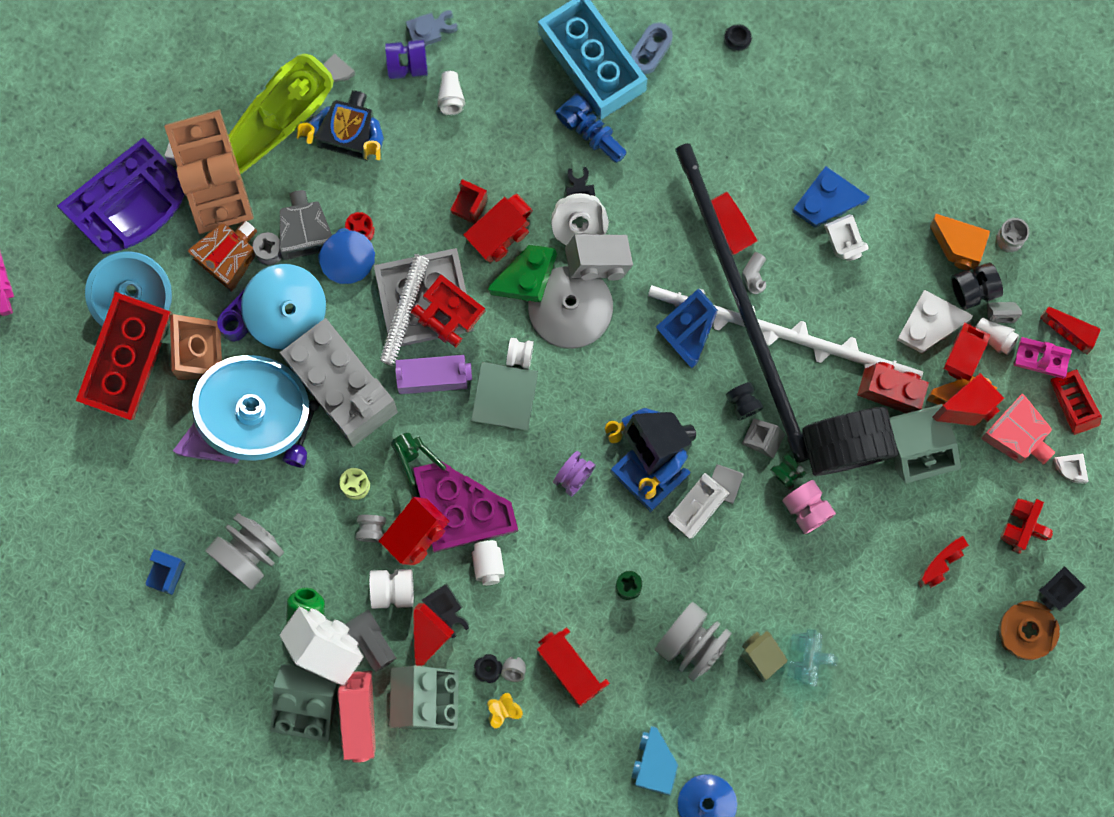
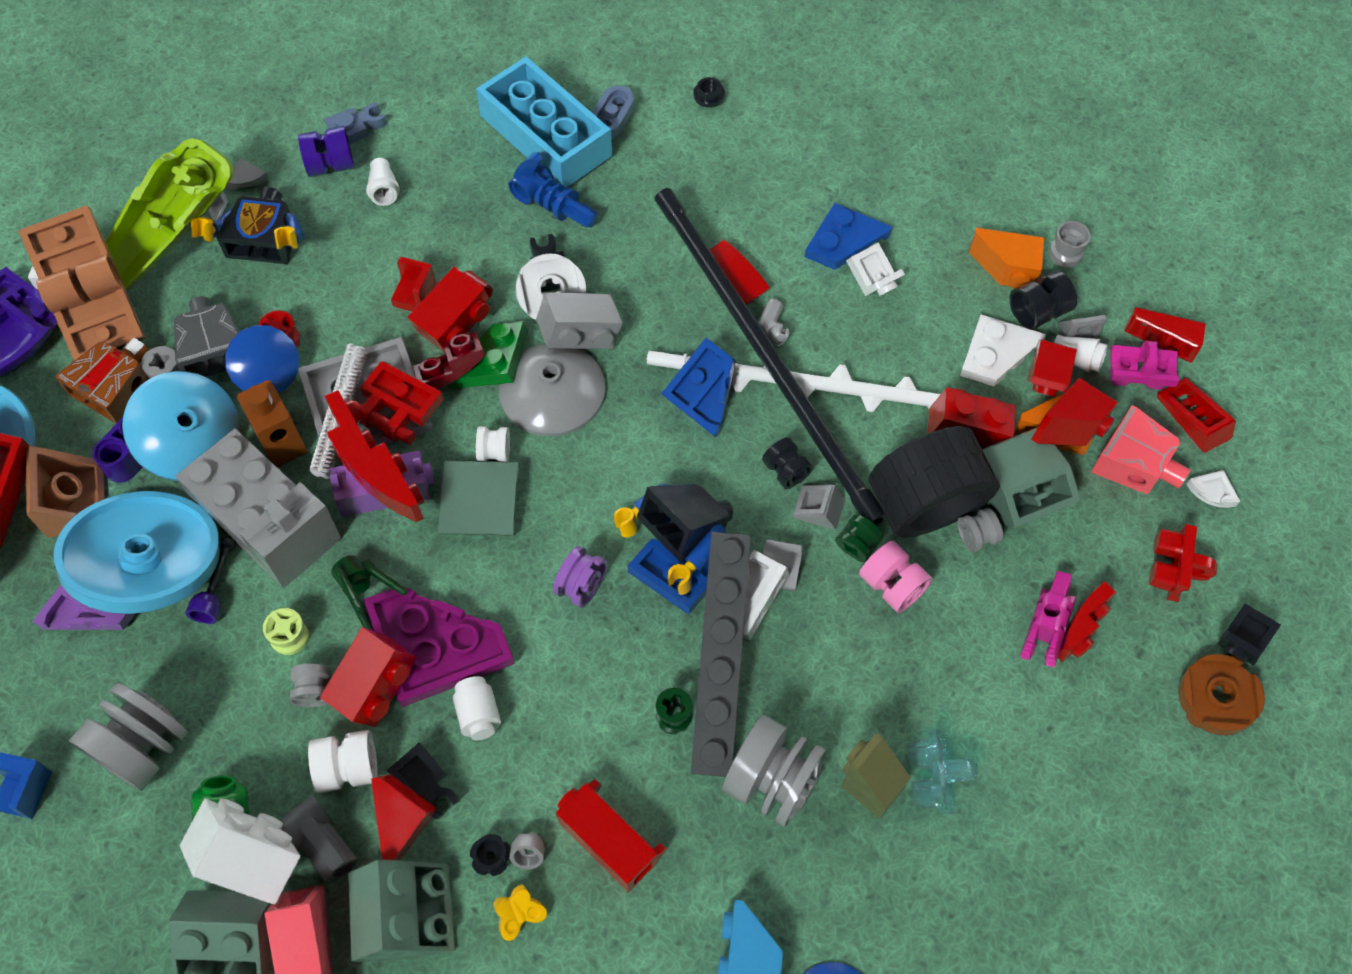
camera: 10 degrees left, 15 degrees down
(352, 313) = (269, 414): none -> dark orange torso
(432, 371) = (372, 464): none -> red slope
(489, 281) = (461, 355): none -> dark red slope
(669, 549) = (721, 654): none -> dark grey plate
(881, 477) = (980, 530): none -> light grey wheel
(922, 543) = (1050, 619): none -> dark pink hinge

